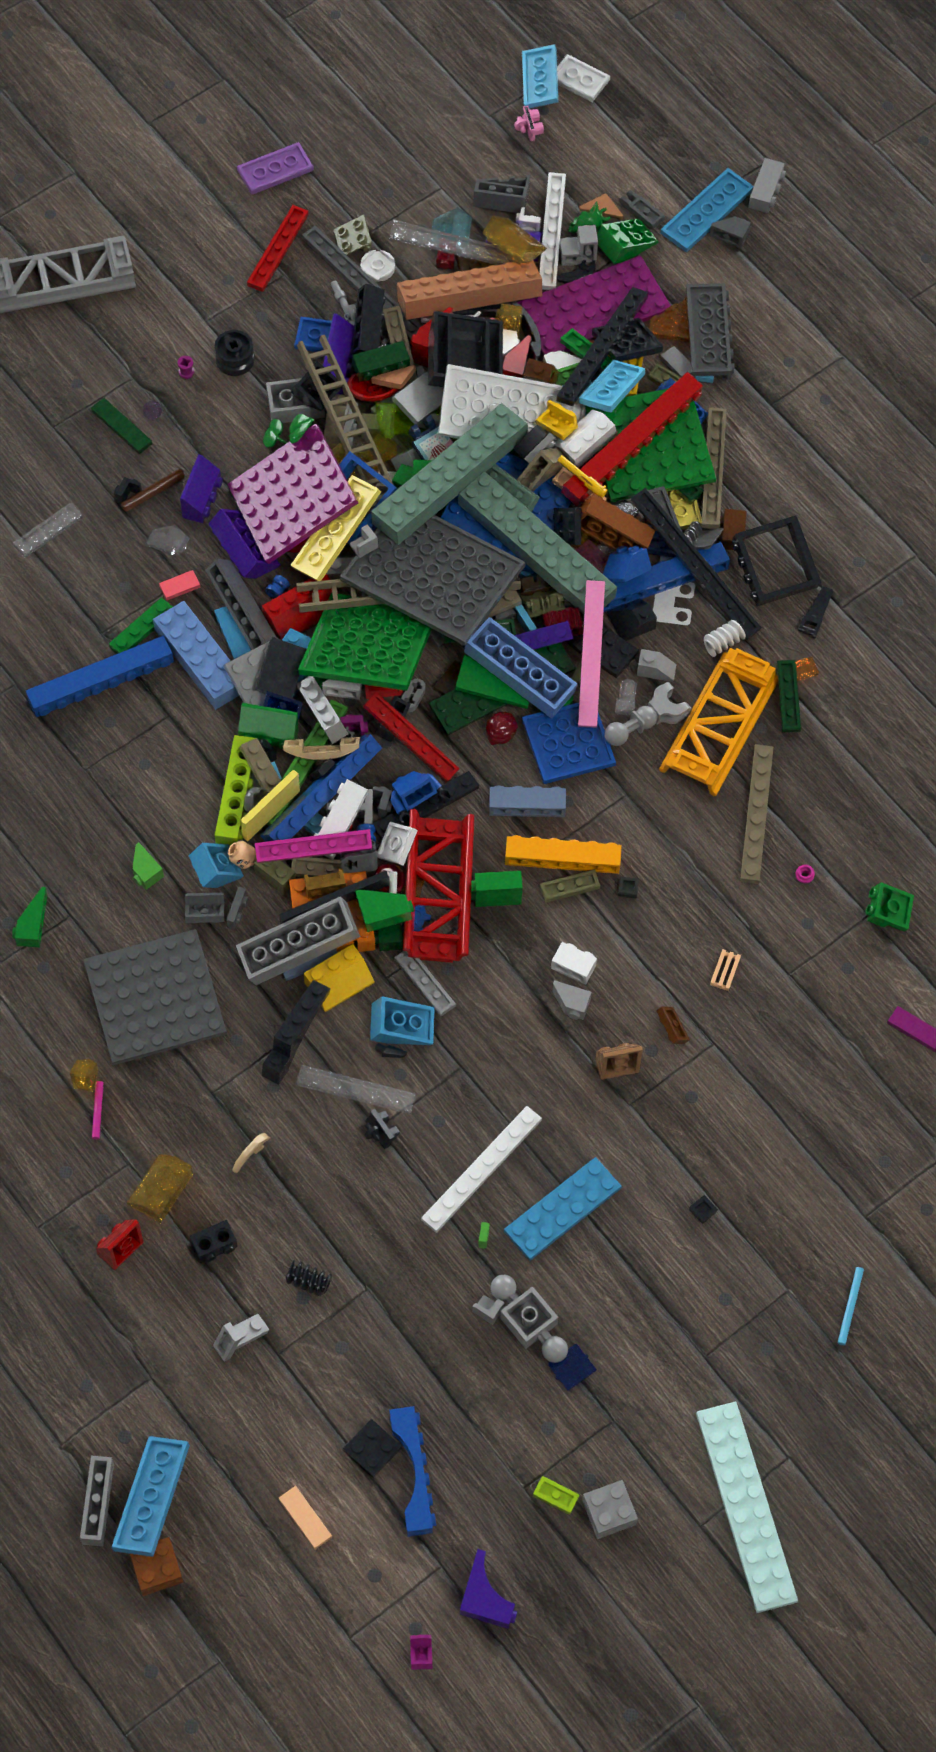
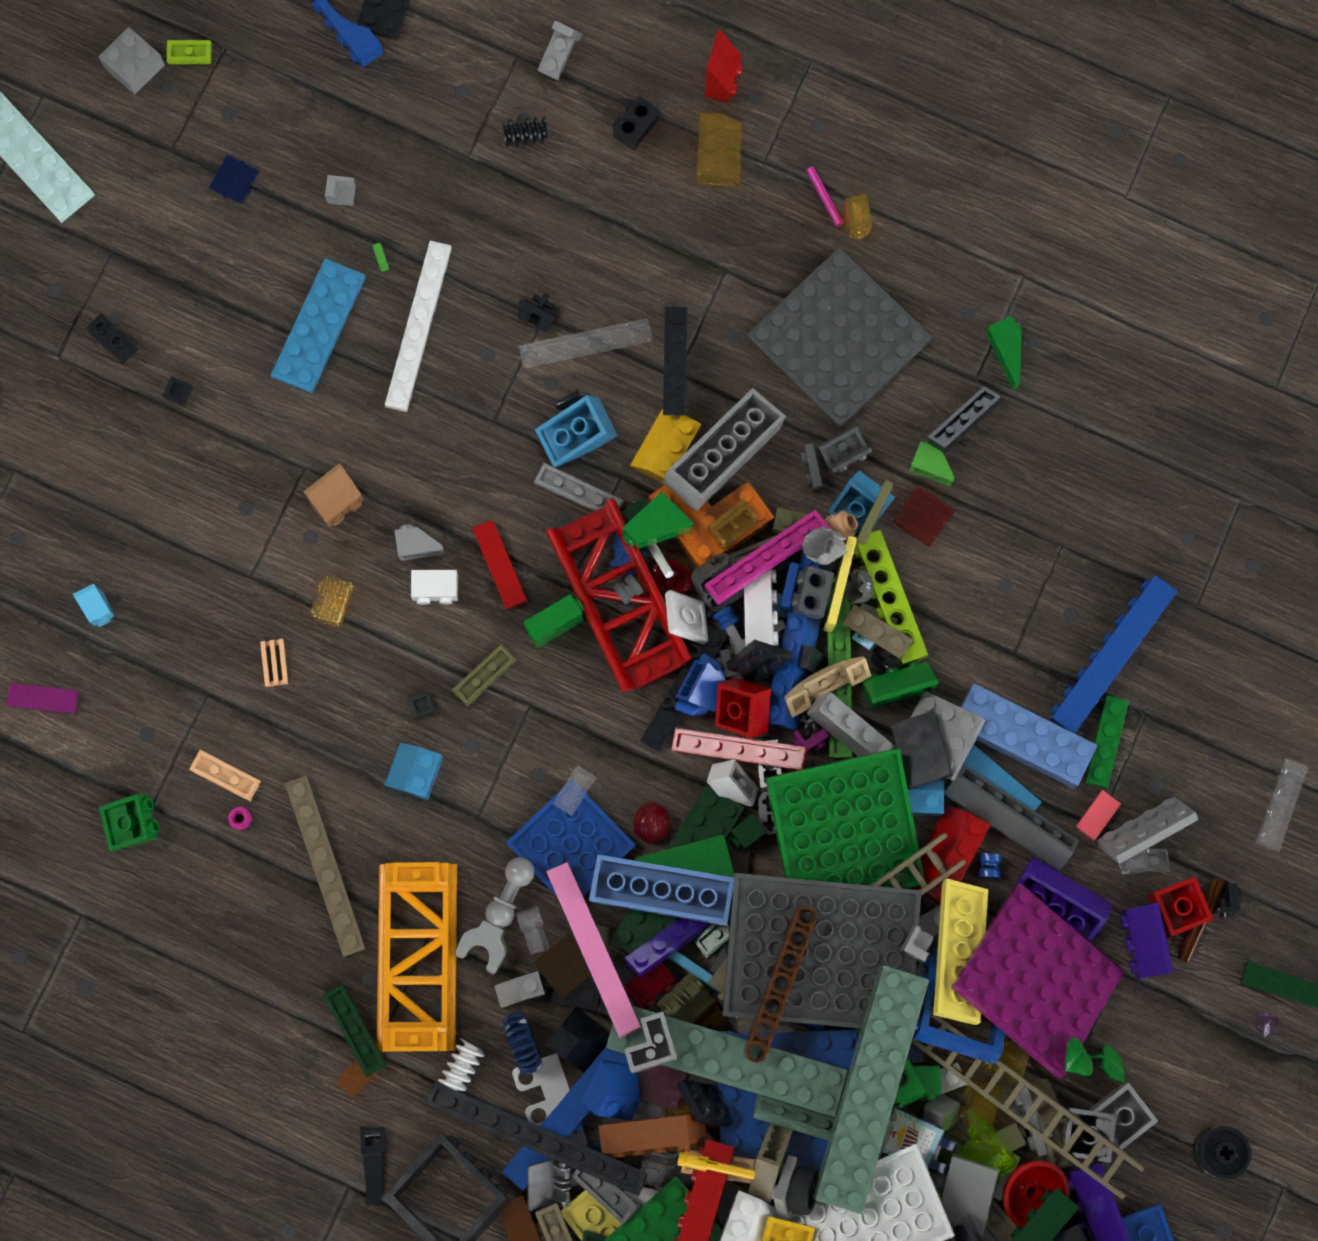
camera: 150 degrees right, 15 degrees up
(100, 882) = (964, 419): none -> black plate
(153, 553) = (1147, 829): none -> light grey plate
(163, 498) = (1181, 906): none -> red slope
(174, 837) = (923, 516): none -> clear red tile
(186, 369) = (1258, 1105): magenta bush -> none
(213, 838) = (875, 512): none -> olive tile
(254, 1147) = (649, 232): tan piece -> none
(268, 824) = (824, 545): none -> light grey hair
(280, 702) = (895, 710): clear blue slope -> none
(298, 800) = (818, 595): none -> dark grey brick
(304, 828) = (789, 587): none -> blue tile
(348, 894) = (711, 509): black tile -> none
(363, 779) = (758, 660): none -> black plate
(392, 759) = (742, 707): none -> red brick
(396, 378) = (1012, 1210): nougat tile -> none
(428, 722) = (732, 782): none -> white slope
(430, 878) = (628, 589): none -> dark grey wheel
(437, 683) = (747, 834): none -> dark green brick
(497, 540) = (788, 974): none -> reddish brown beam
(515, 957) = (499, 564): none -> red tile
(527, 801) = (576, 746): sand blue brick -> none
(529, 1318) = (294, 196): light grey brick -> none
(546, 770) = (574, 790): none -> clear plate
(563, 854) = (508, 703): light orange brick -> none
(585, 559) = (657, 1049): none -> light grey brick
(617, 663) = (564, 966): none -> dark brown tile
(657, 842) = (414, 770): none -> dark azure slope
(659, 989) = (332, 602): none -> clear yellow brick
(673, 628) = (522, 1042): none -> dark blue gear
(673, 1025) = (299, 569): reddish brown plate -> none
(737, 1275) = (111, 338): none -> black brick
(802, 909) = (225, 775): none -> light nougat tile
(845, 1072) = (94, 605): none -> medium azure slope

